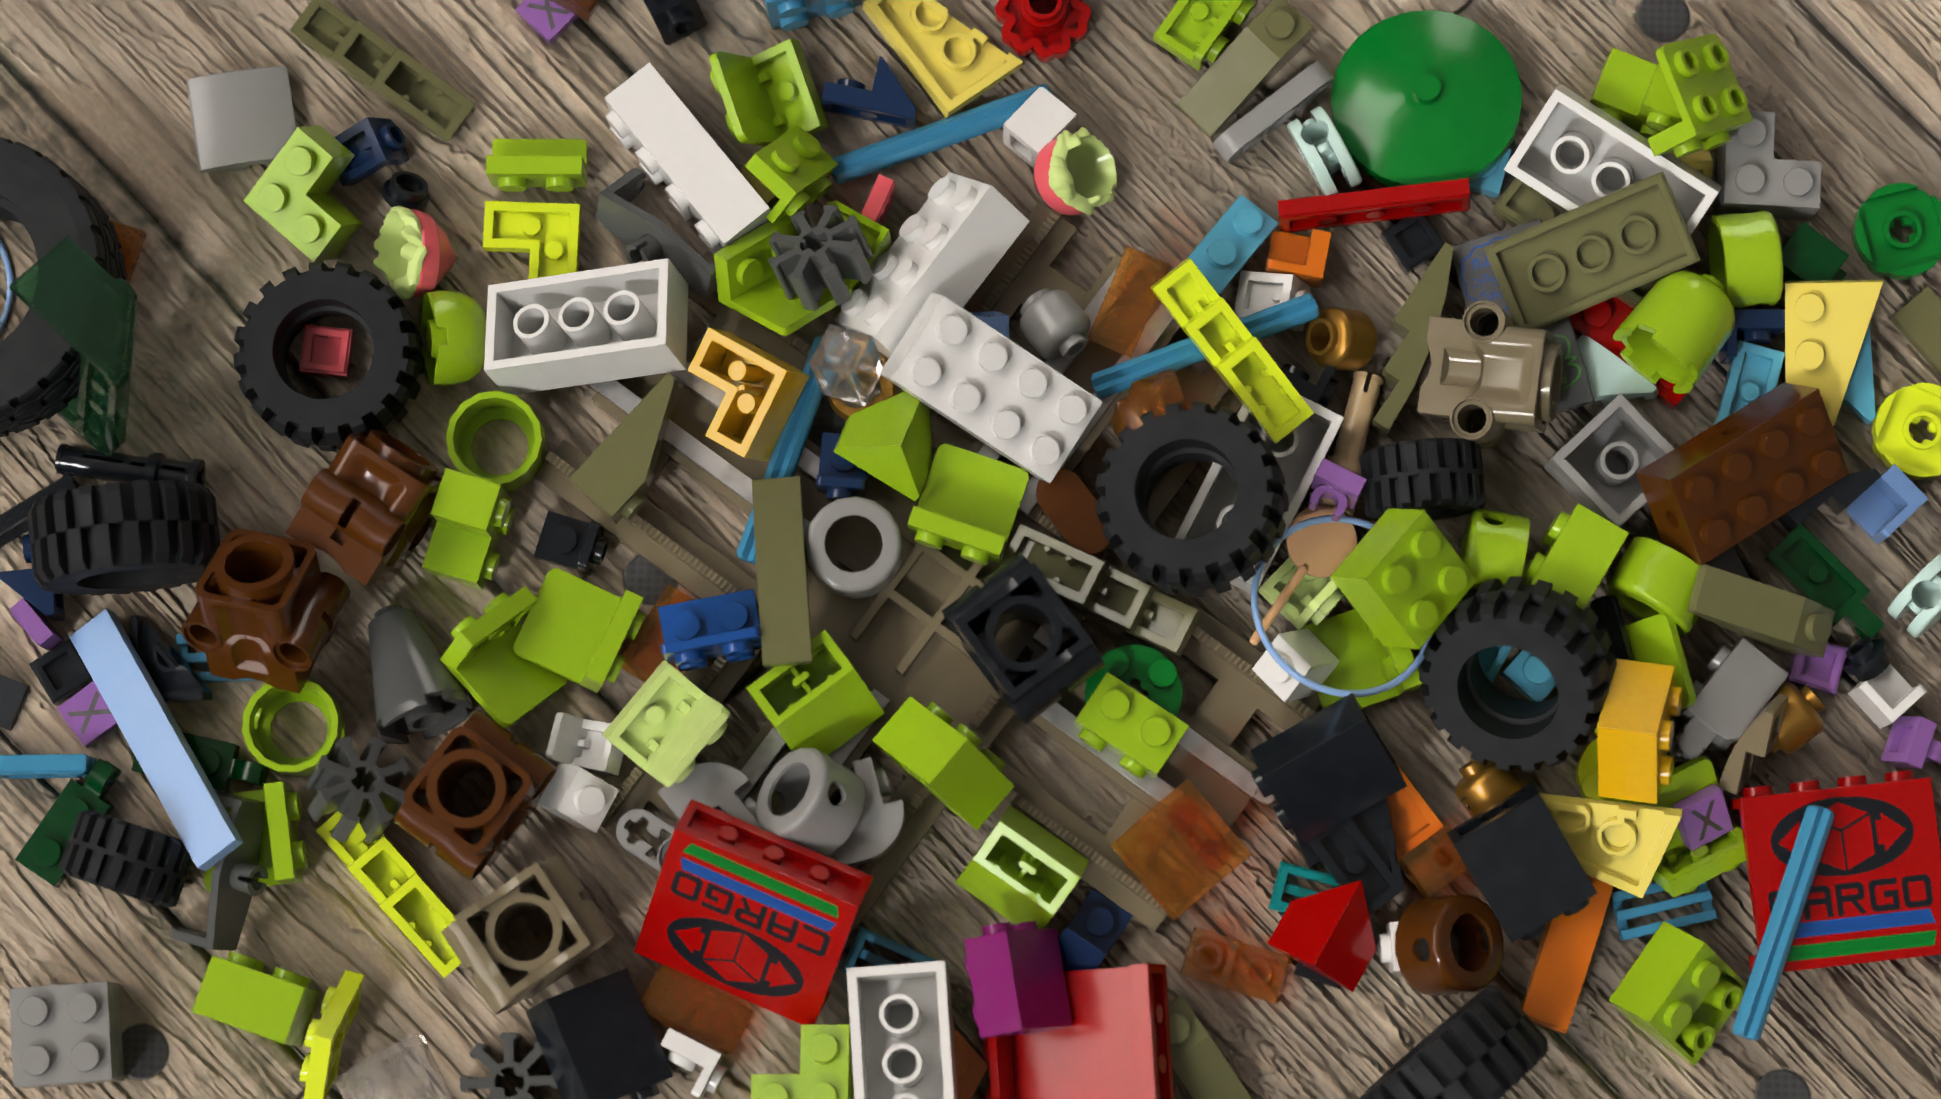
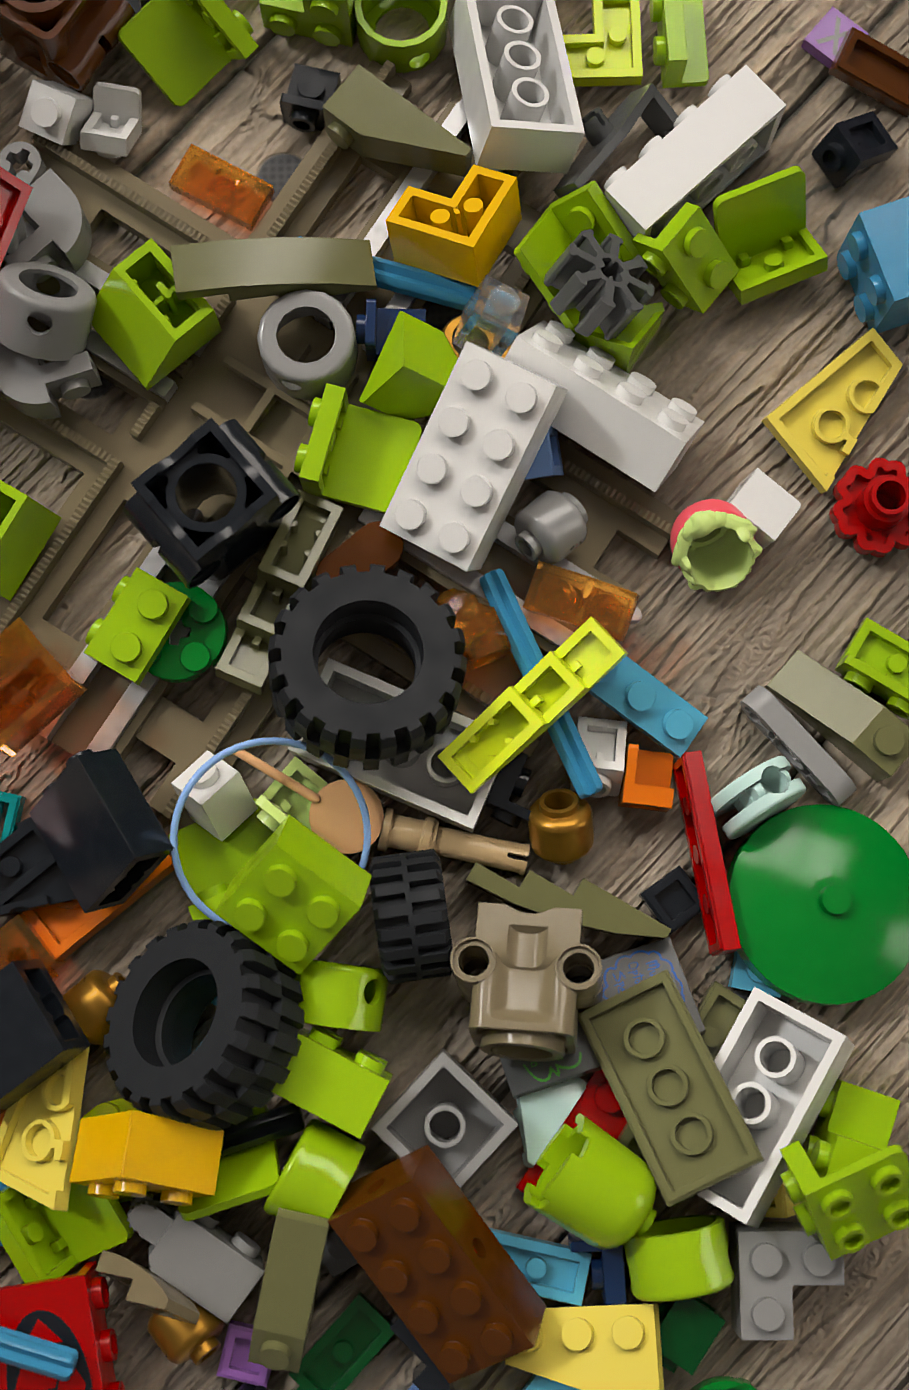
camera: 85 degrees right, 0 degrees up
(578, 629) = (222, 105): lime bracket -> none
(667, 725) = (121, 177): yellowish green bracket -> none
(710, 629) = (213, 204): blue bracket -> none
(880, 199) = (666, 357): coral tile -> none
(884, 104) = (773, 352): dark blue slope -> none
(929, 137) = (739, 403): dark azure axle -> none
(945, 760) = (89, 440): lime brick -> none
(1337, 484) = (399, 823): medium lavender tile -> none
(1703, 817) = (71, 1234): medium lavender tile -> none

